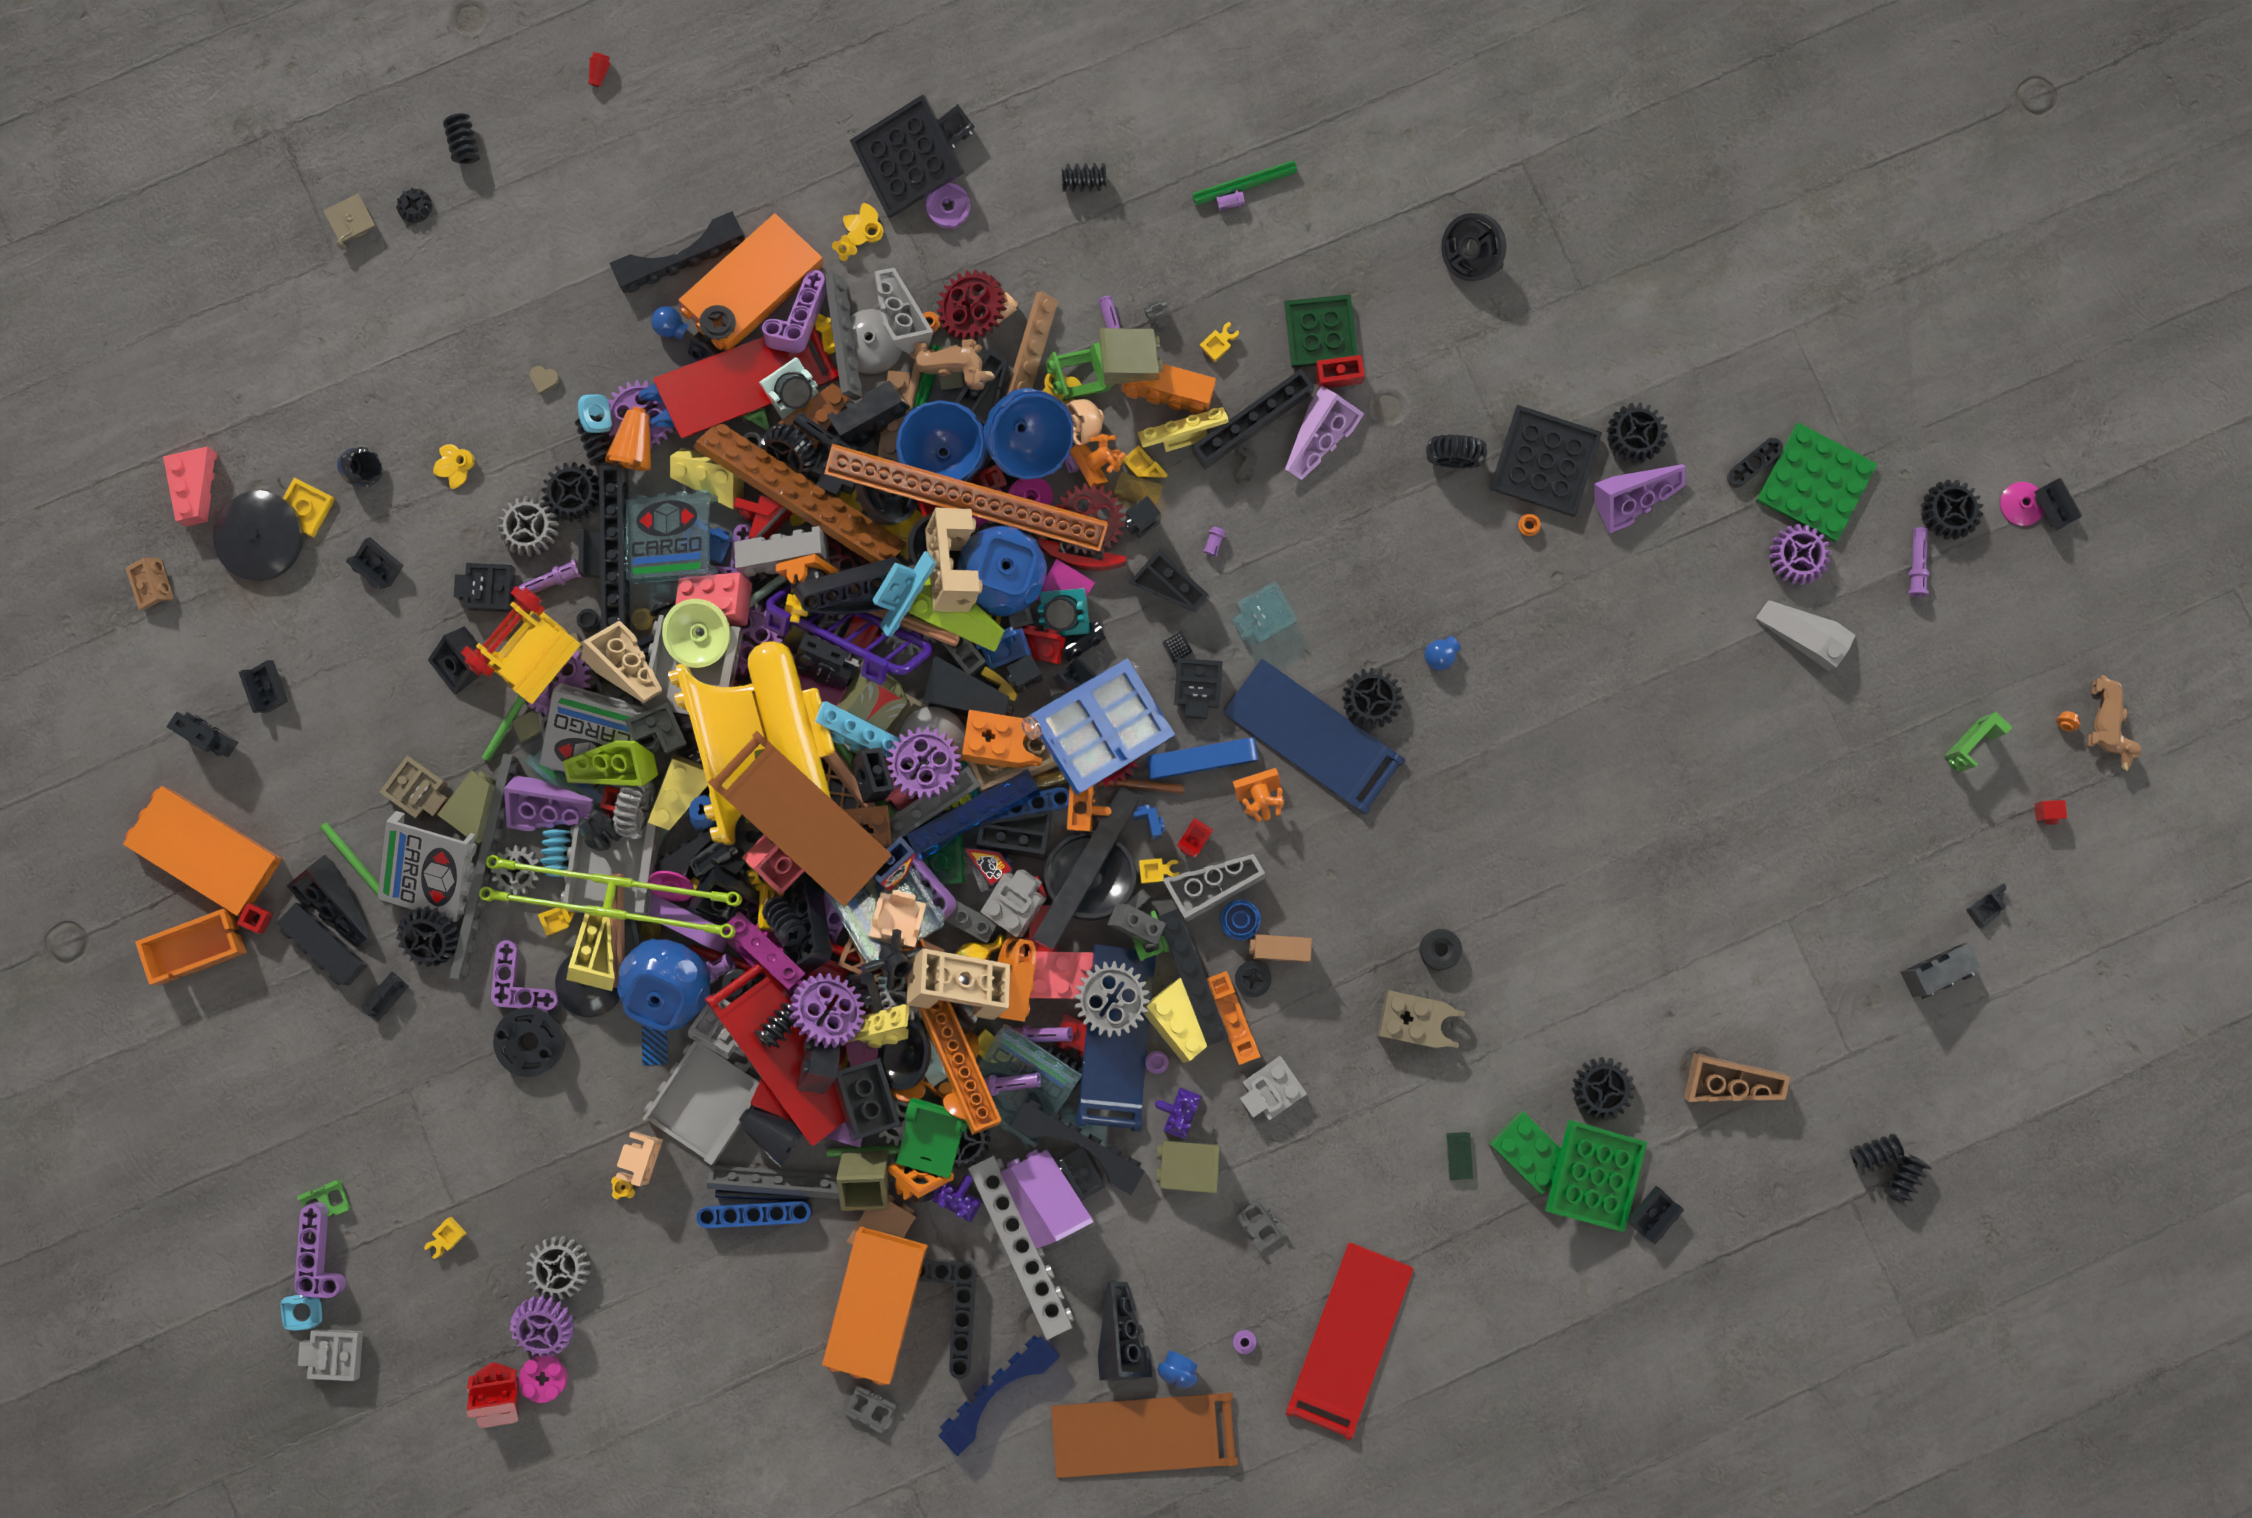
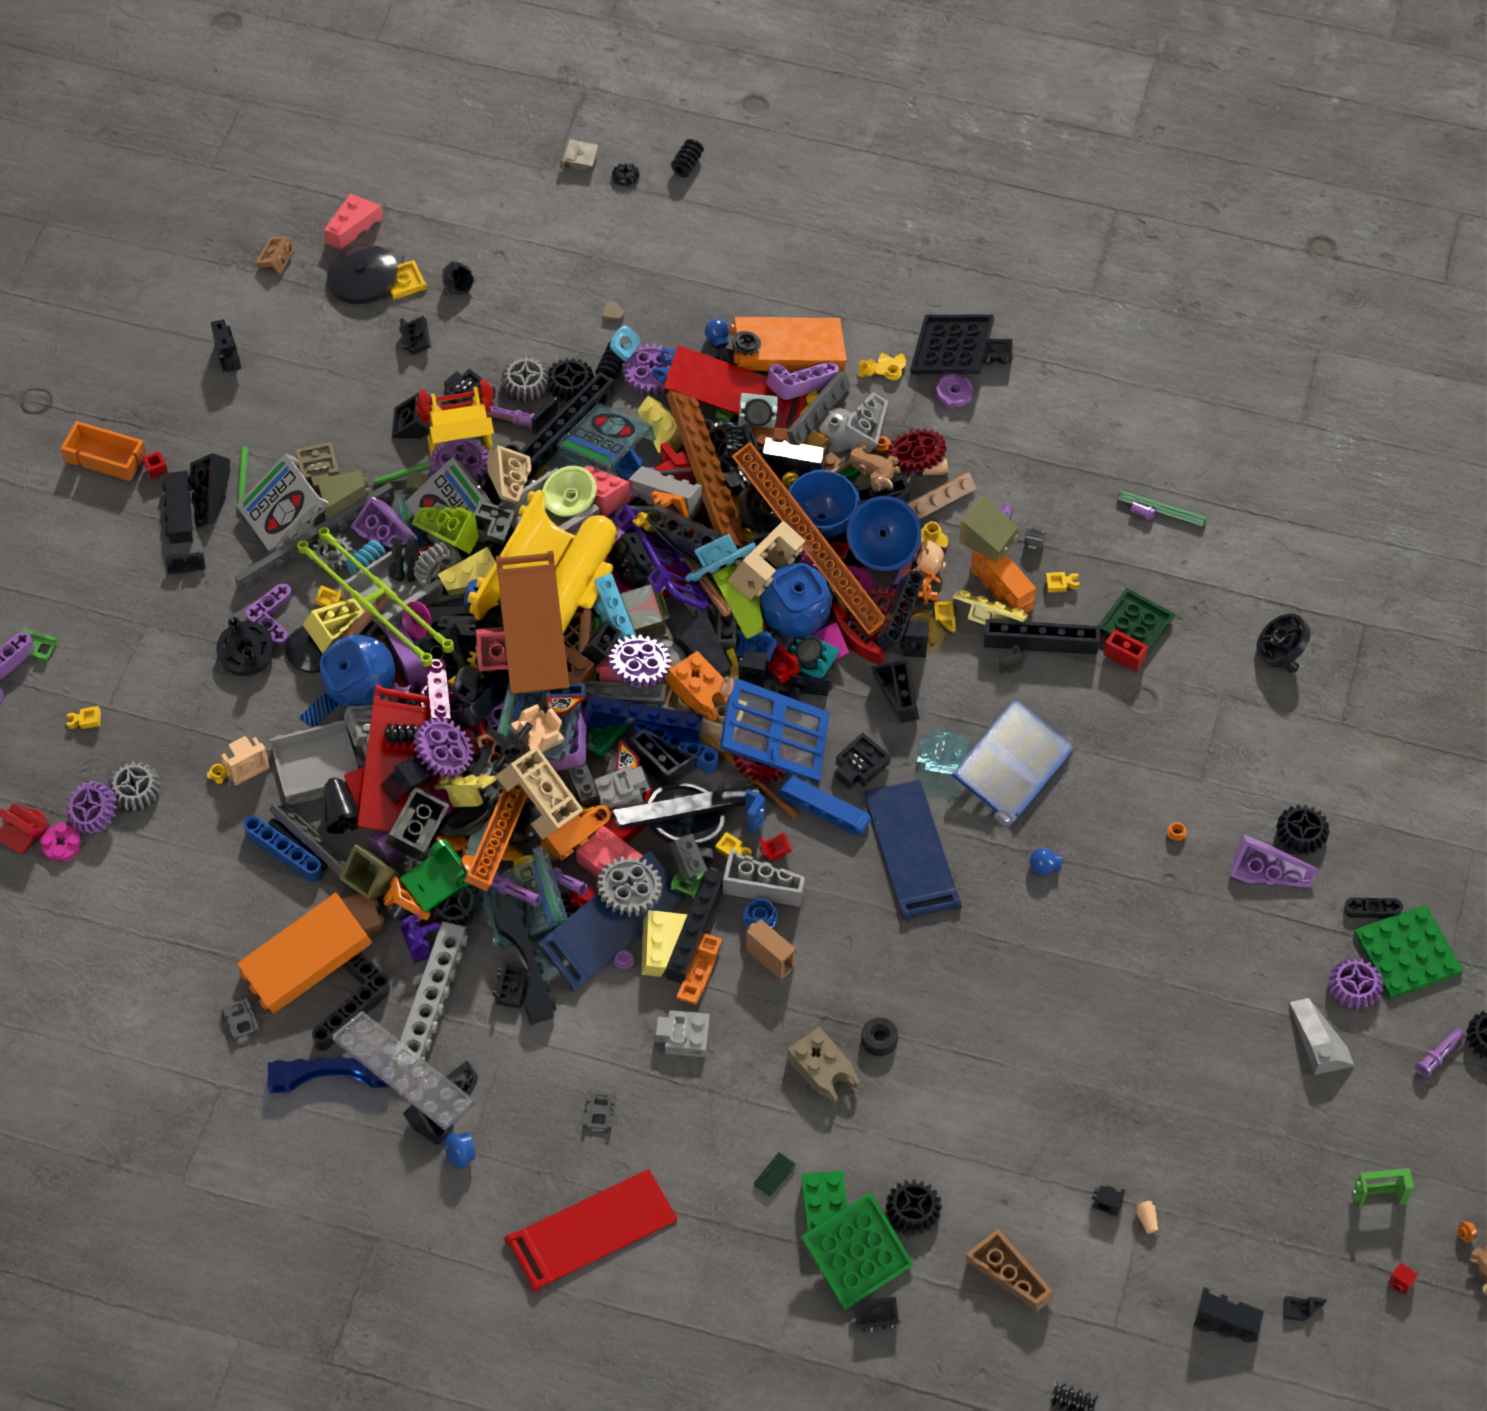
camera: 40 degrees right, 25 degrees down
(201, 850) = (162, 408): orange brick -> none
(263, 687) = (284, 351): black bracket -> none
(432, 949) = (240, 539): black gear -> none
(451, 466) = (514, 318): yellow plate -> none
(598, 68) = (805, 178): red cone -> none
(632, 441) = (631, 372): orange cone -> none
(637, 271) = (725, 294): black arch -> none
(871, 374) = (818, 440): none -> pearl gold brick
(884, 438) = (788, 479): none -> yellow plate
(1044, 1198) = (472, 977): medium lavender slope -> none
(1056, 363) = (940, 517): bright green panel -> none
(1069, 1347) = (403, 1070): none -> clear plate
(1081, 810) = (717, 769): orange piece -> none
(1083, 177) = (1056, 433): black piece -> none
(1112, 505) = (900, 609): none -> black beam
(1141, 1435) = (397, 1176): dark orange flag -> none
(1177, 646) = (871, 729): black slope -> none
(1180, 1112) = (613, 1000): dark purple piece -> none
(1188, 1166) = (586, 1034): olive slope -> none
(1214, 541) = (952, 689): medium lavender pin -> none
(1244, 1334) = (520, 1178): medium lavender plate -> none
(1259, 788) = (844, 849): orange piece -> none
(1262, 972) = (735, 951): black gear -> none
(1323, 426) = (1084, 677): lavender wedge -> none
(1334, 574) = (1013, 762): none -> clear door
(1382, 700) = (971, 860): black gear -> none
(1456, 451) = (1163, 748): black gear -> none
(1545, 460) = (1222, 801): black plate -> none
(1757, 942) = (1108, 1199): none -> black brick
(1800, 929) = (1147, 1214): none -> light nougat cone

